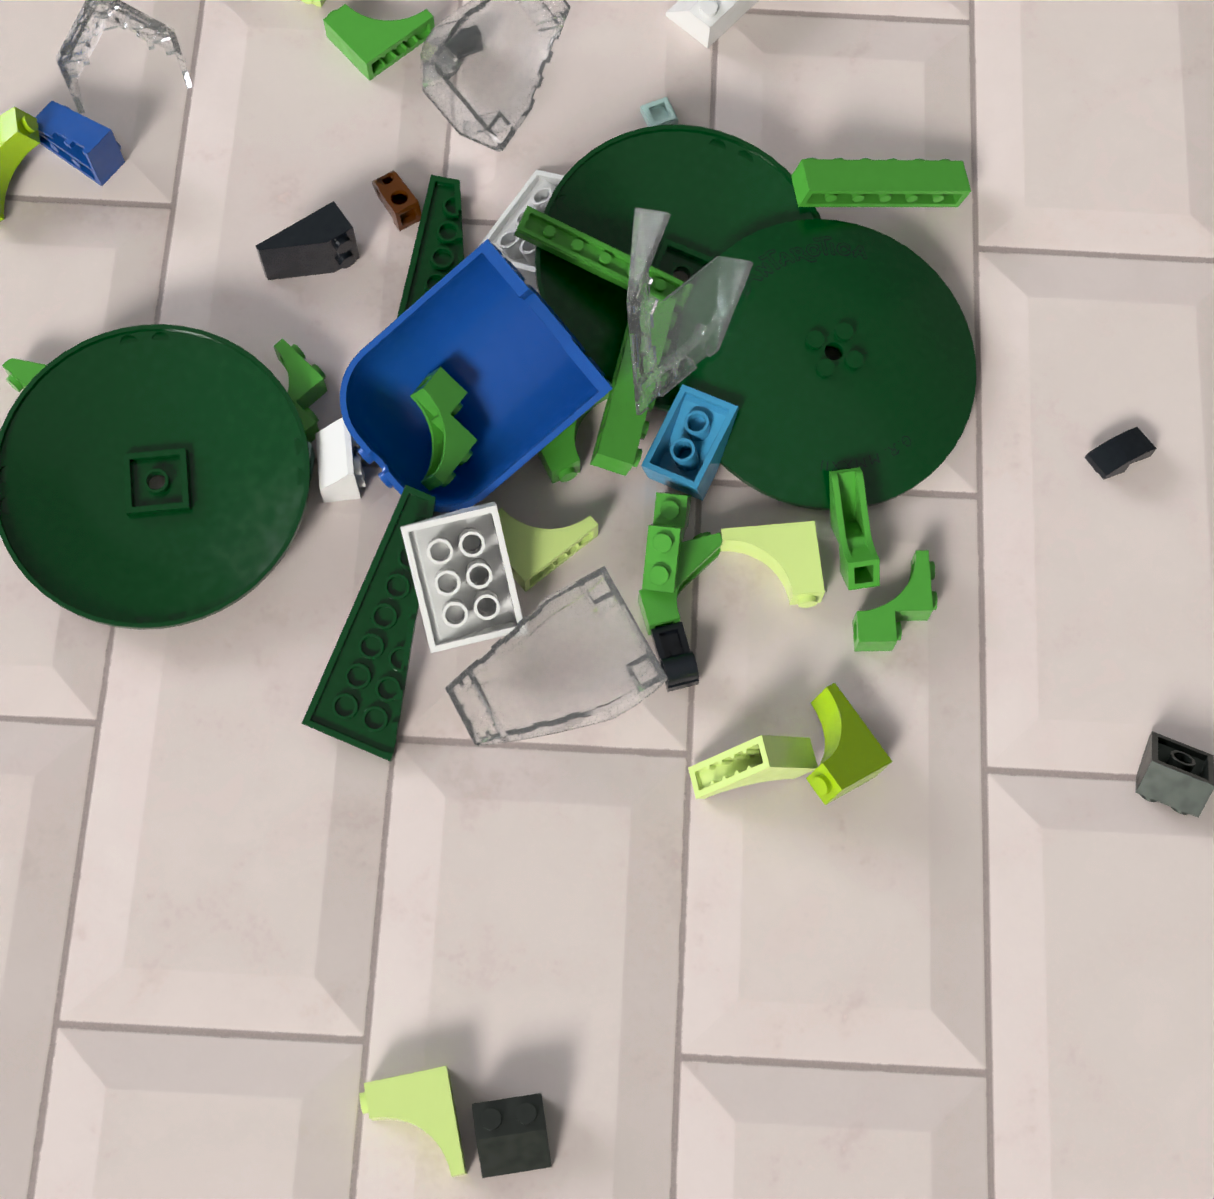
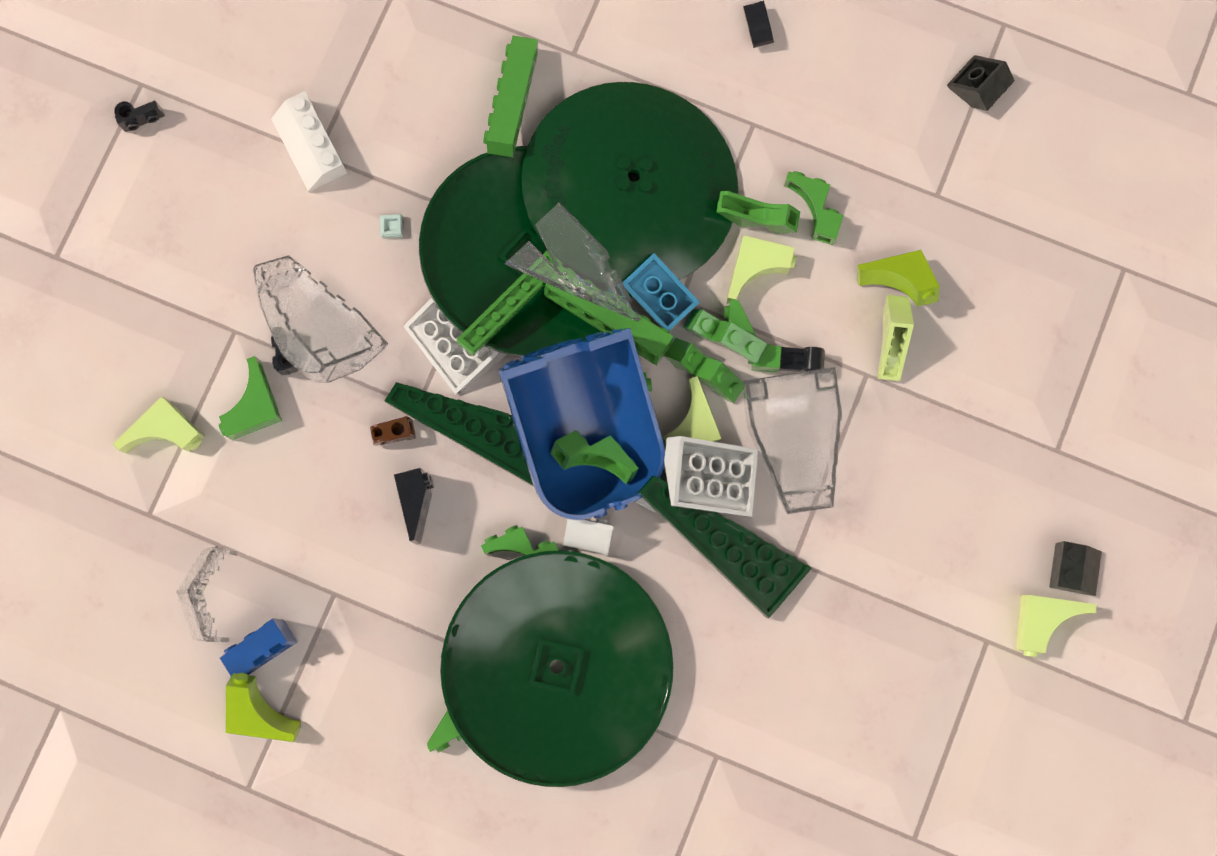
camera: 65 degrees left, 10 degrees up
(614, 527) = (708, 370): none -> bright green arch

